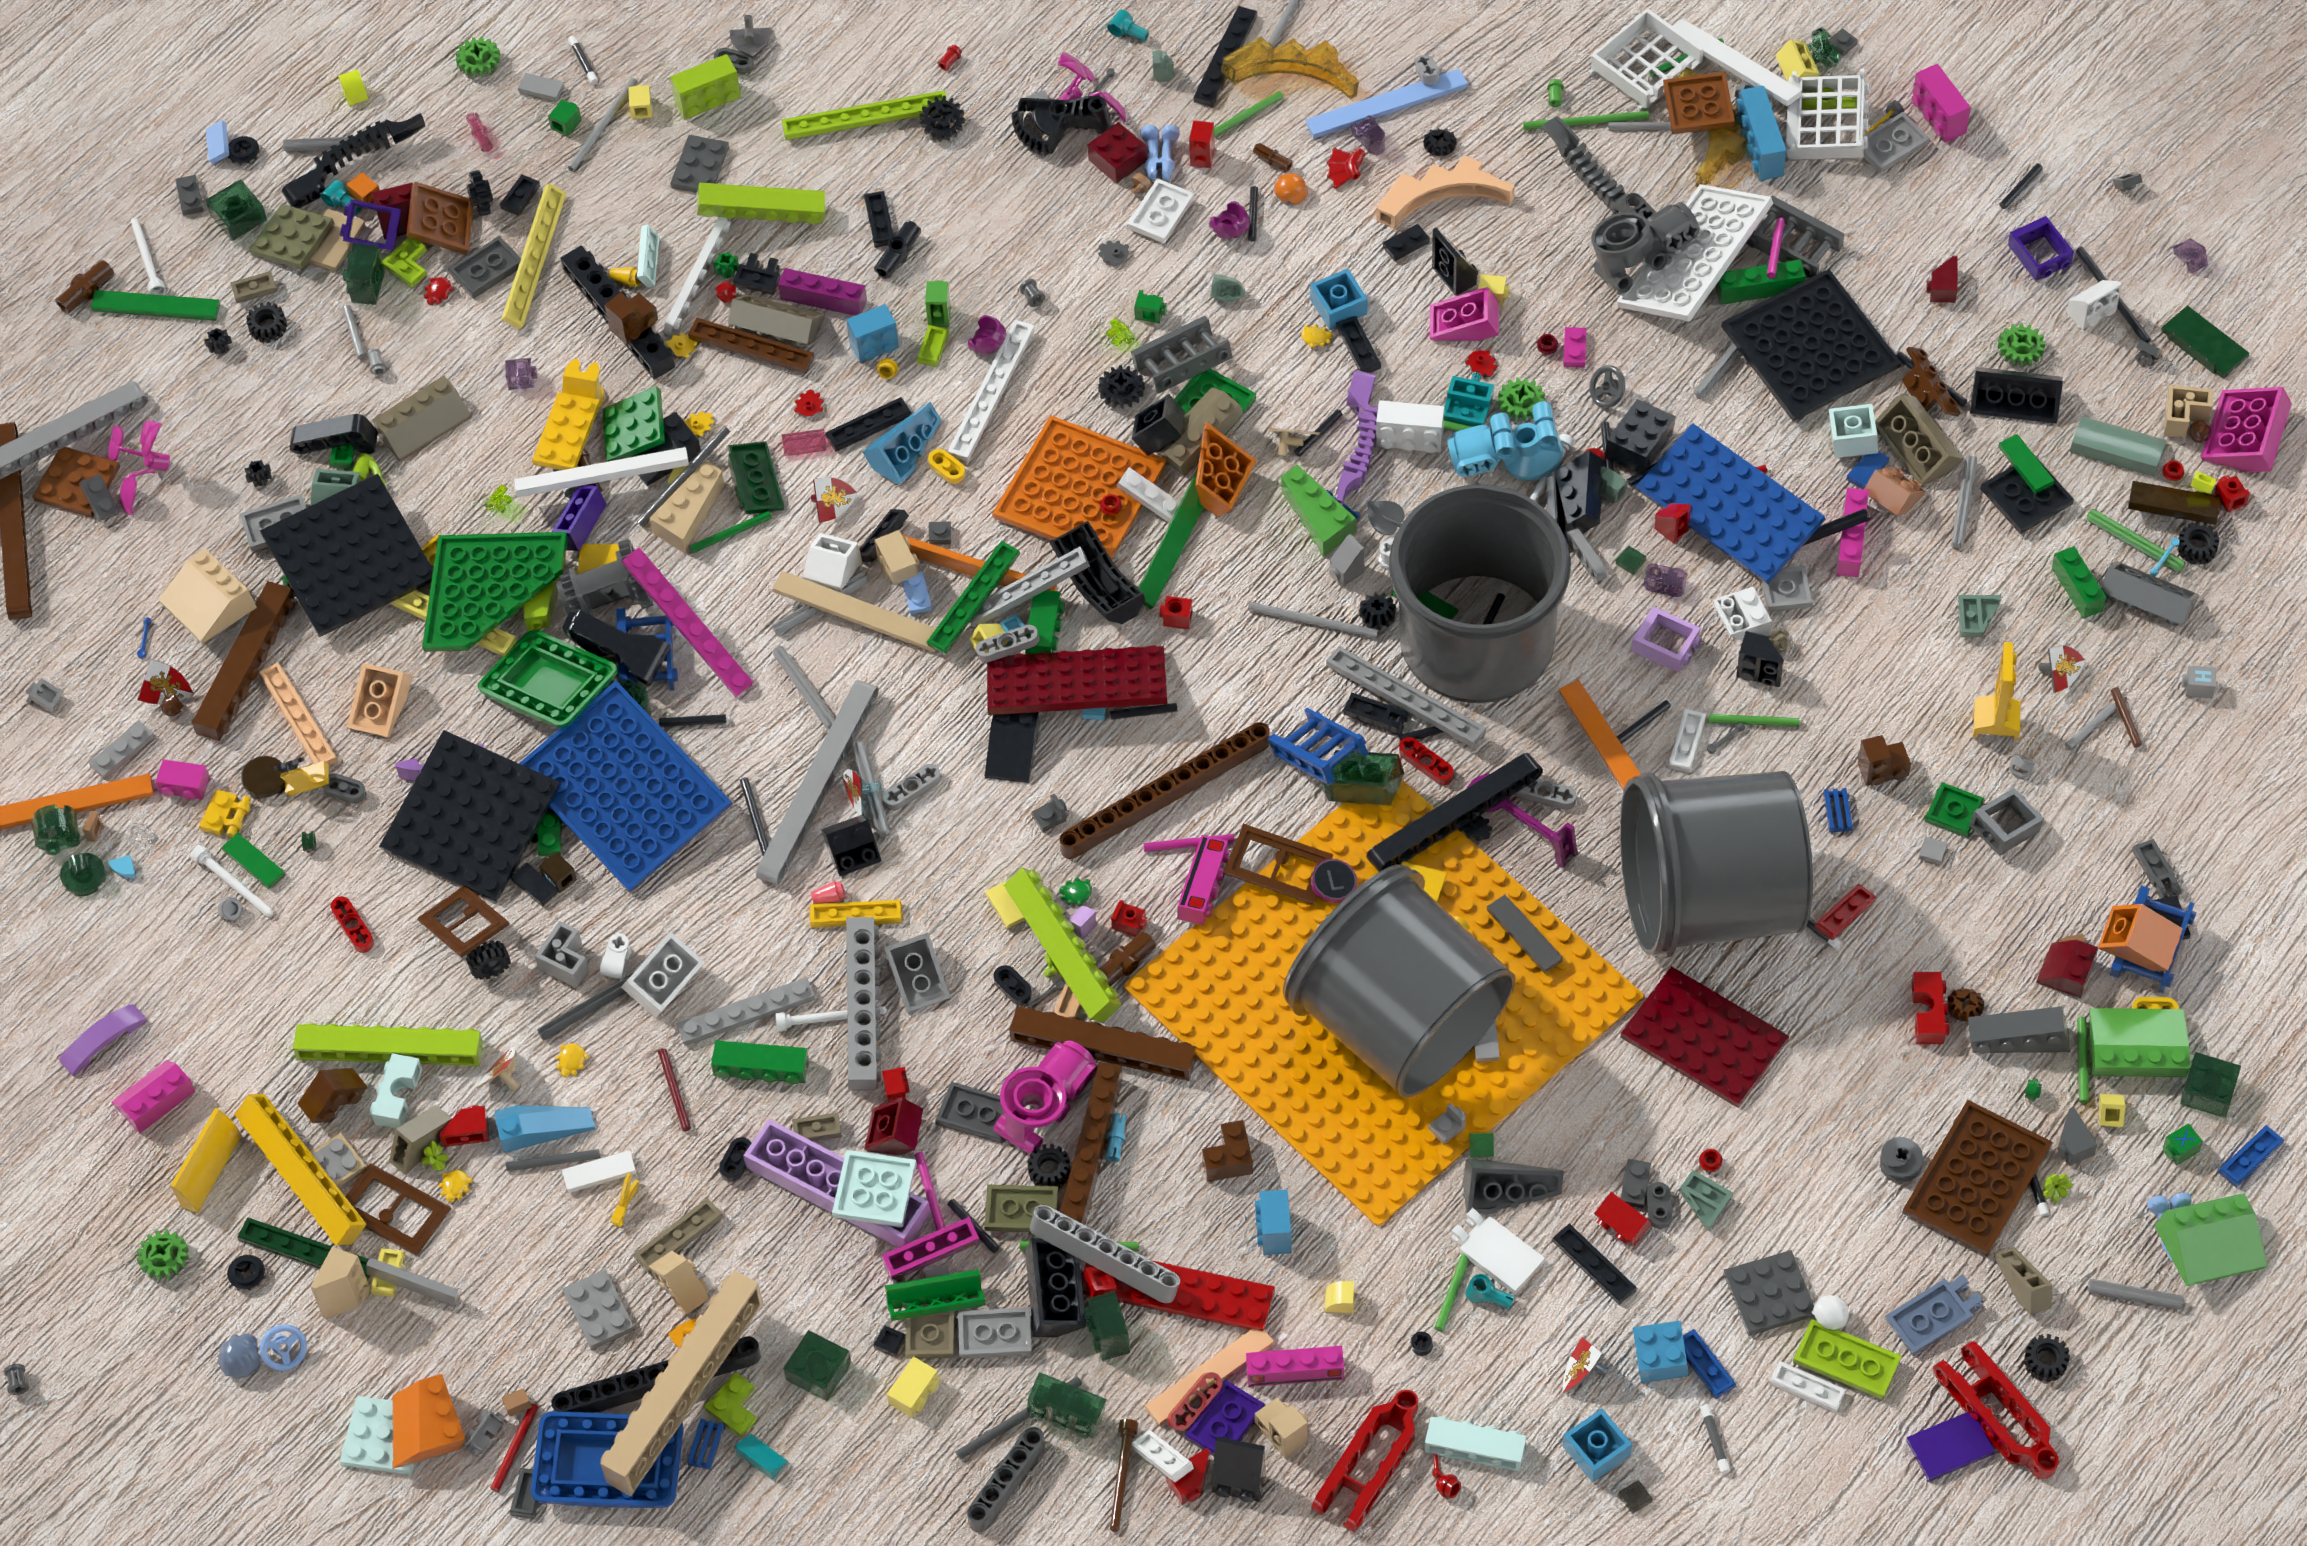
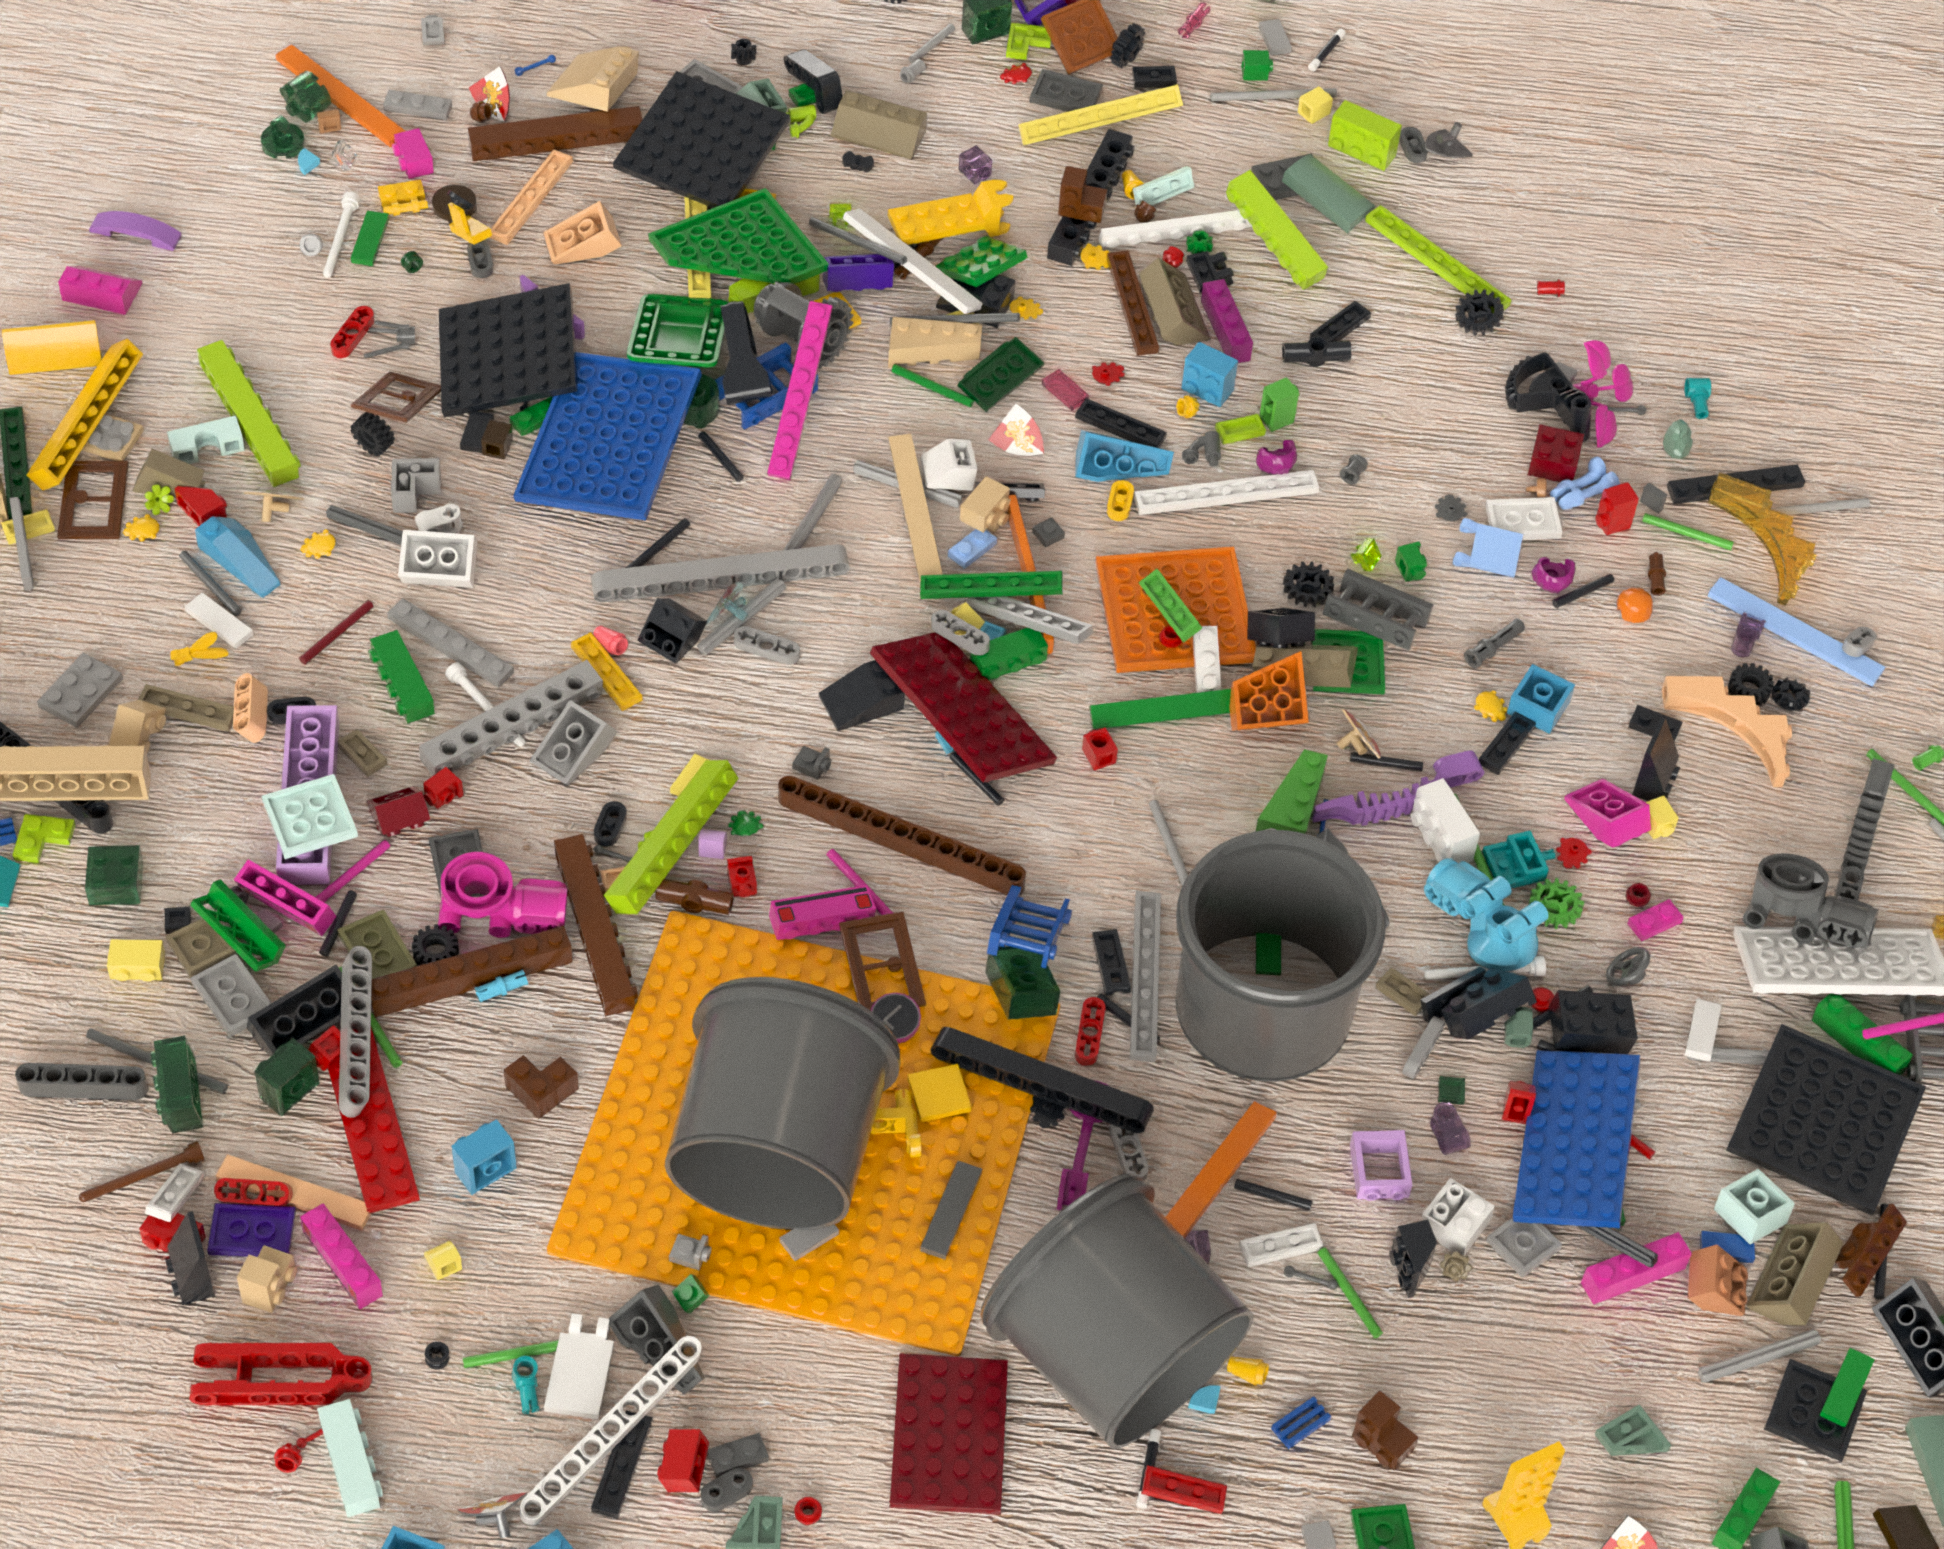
camera: 50 degrees right, 5 degrees down
(329, 1091) = (174, 394): reddish brown brick -> none
(388, 886) = (404, 334): none -> dark grey plant
(446, 456) = (857, 162): none -> black piece
(546, 500) = (885, 252): none -> dark grey piece
(663, 284) = (1144, 212): none -> reddish brown plate
(705, 1187) = (250, 708): none -> light nougat beam
(742, 147) = (1327, 192): none -> sand green slope
(940, 375) = (1212, 448): none -> dark grey plant
(1086, 486) = (1170, 605): none -> bright green plate
(1102, 582) = (1086, 664): black piece -> none
(1176, 247) = (1492, 549): none -> light blue flag
(1204, 113) = (1653, 498): none -> dark grey tile
(1226, 288) = (1480, 608): sand green rock -> none
(1263, 305) = (1487, 647): none -> dark grey pin
(1344, 166) = (1697, 634): red arm -> none
(1412, 152) = (1752, 675): none -> black tyre
(1573, 1241) = (606, 1442): none -> white beam
(1689, 373) = (1703, 1030): none -> white tile

